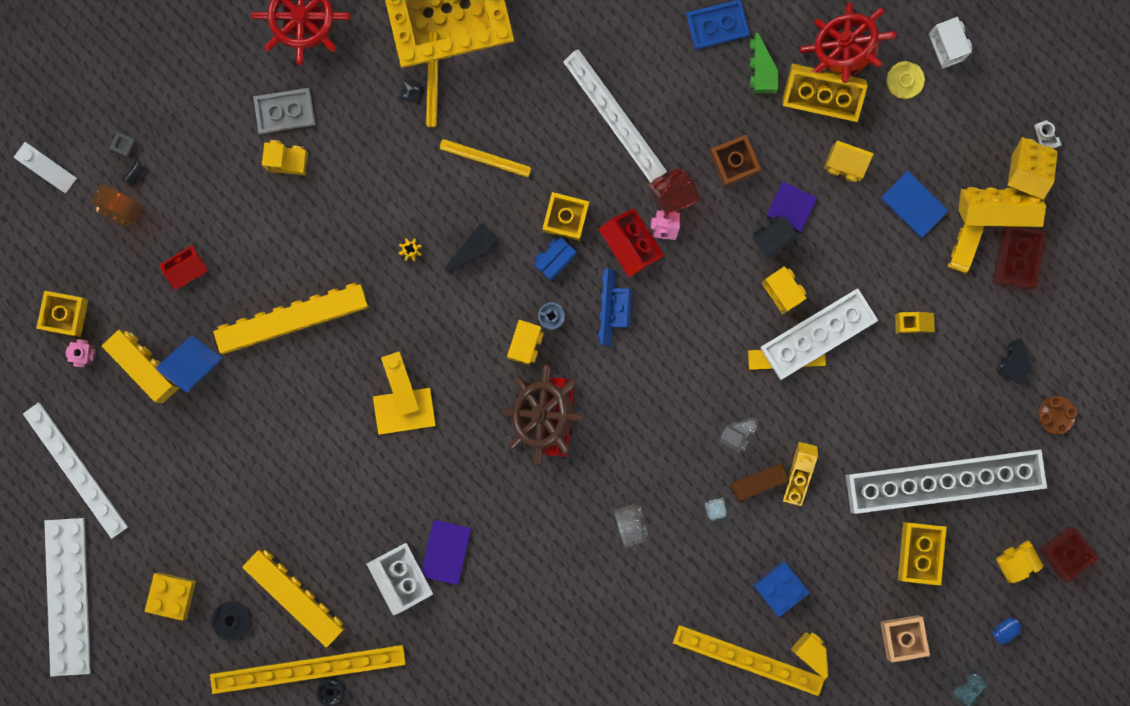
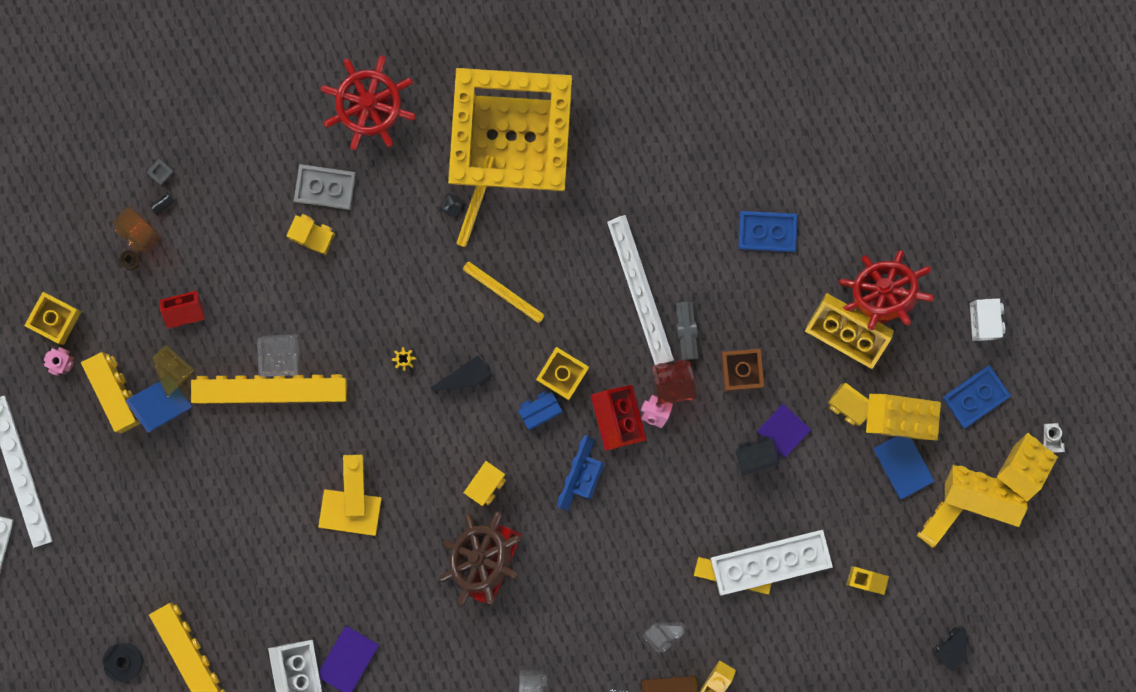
camera: 20 degrees right, 0 degrees up
(45, 167) = (80, 172): white slope -> none
(123, 237) = (131, 263): none -> dark brown wheel
(170, 596) = (72, 621): yellow brick -> none
(190, 328) = (171, 369): none -> clear yellow wing
(289, 282) = (278, 355): none -> clear slope
(551, 308) = (511, 465): sand blue wheel -> none
(671, 140) = (687, 330): none -> dark grey piece
(764, 70) = (798, 292): bright green slope -> none
(784, 289) = (750, 510): yellow brick -> none
(901, 156) = (903, 417): none -> yellow brick
(905, 80) = (930, 346): light yellow tile -> none
(962, 119) = (976, 396): none -> blue tile
(1019, 257) = (988, 548): clear red brick -> none

